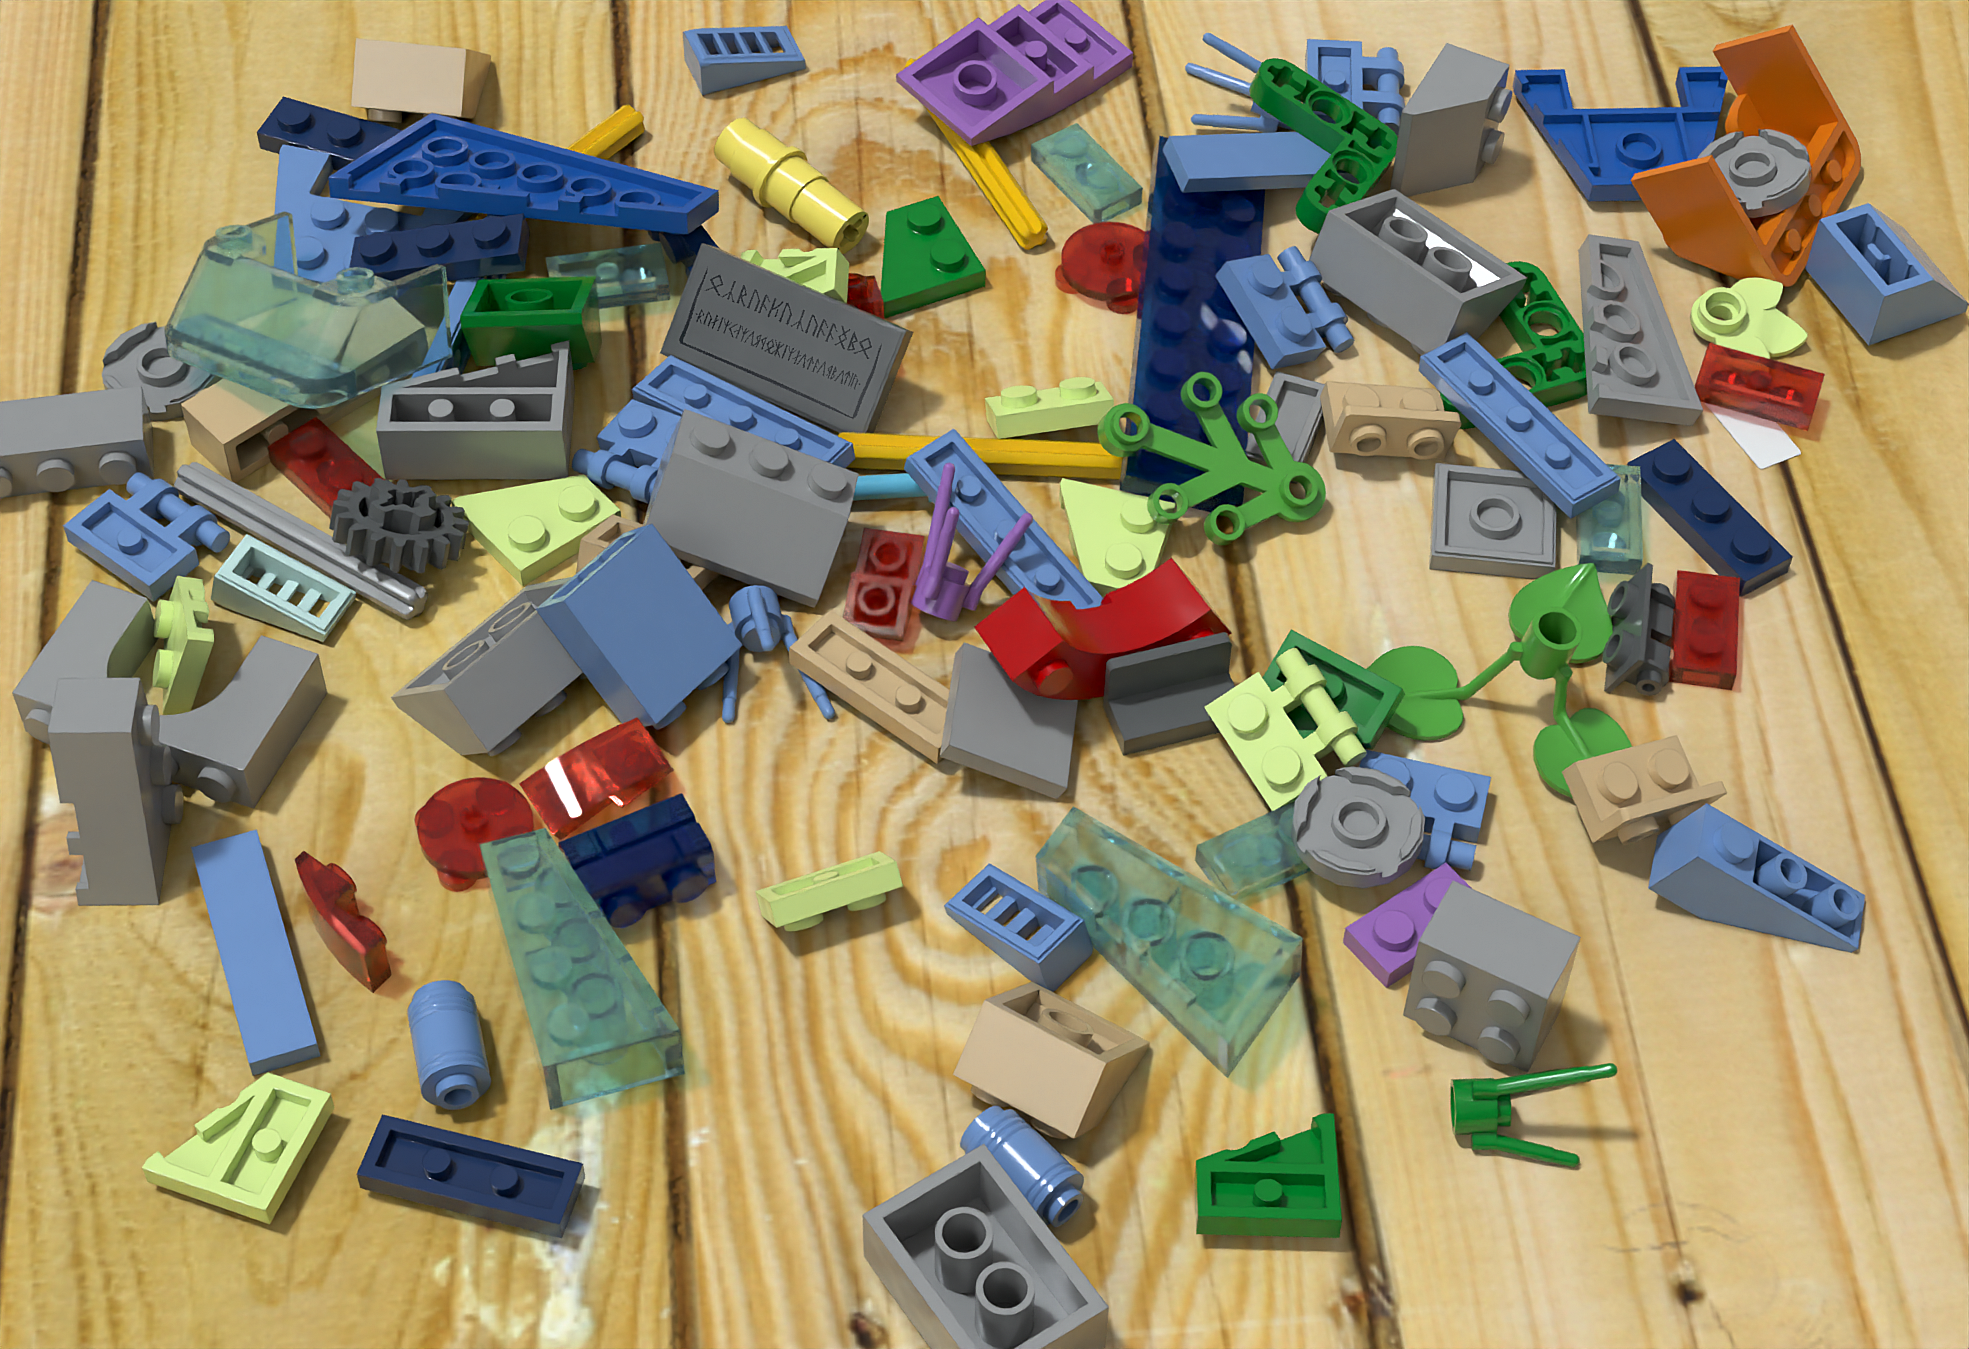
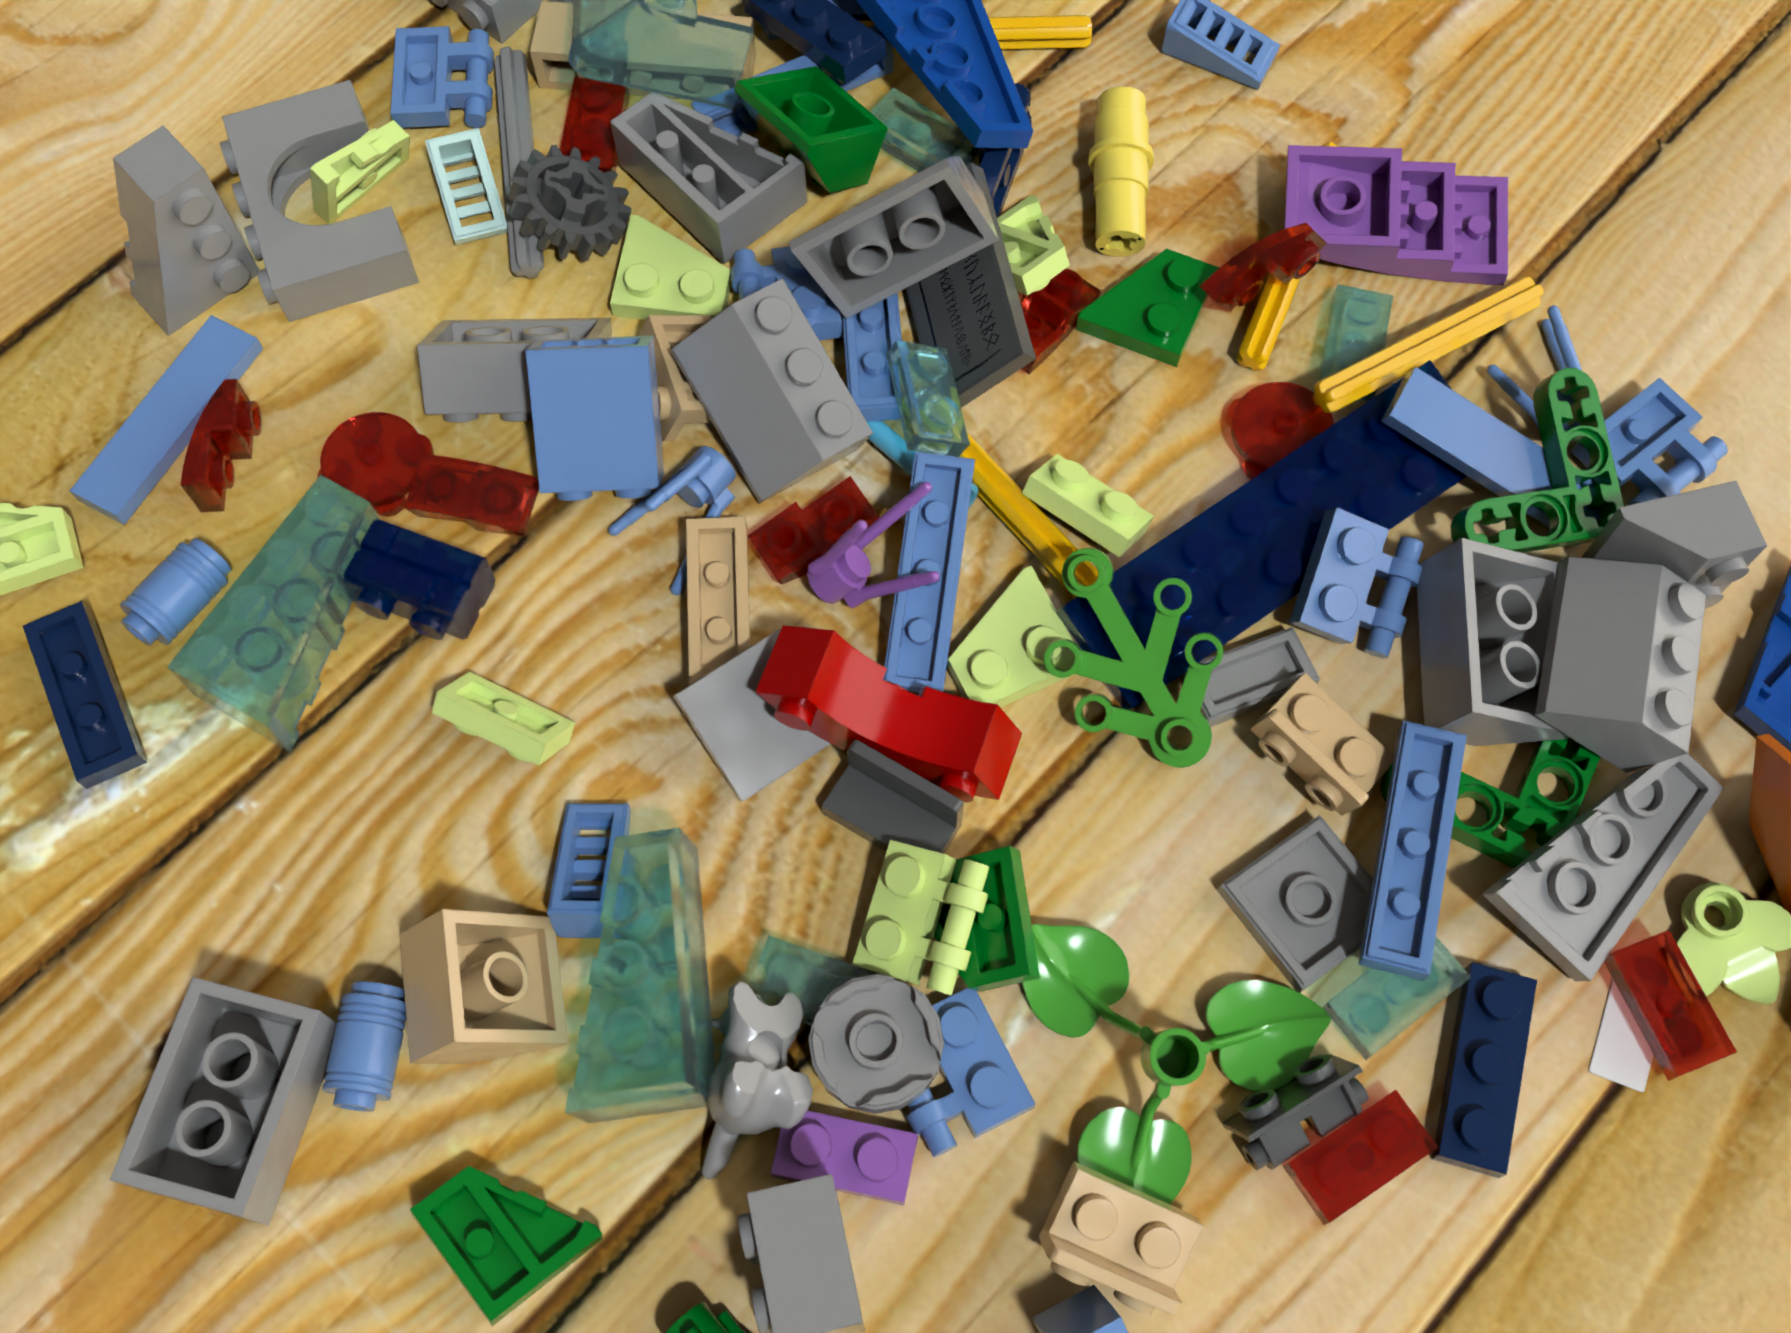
camera: 50 degrees right, 15 degrees up
(721, 322) = (898, 237): none -> light grey slope
(872, 430) = (927, 399): none -> clear light blue plate
(984, 149) = (1283, 254): none -> clear red slope
(1141, 133) = (1426, 344): none -> yellow axle
(1325, 918) = (752, 1081): none -> light grey animal
(1502, 208) = (1622, 660): none -> light grey slope

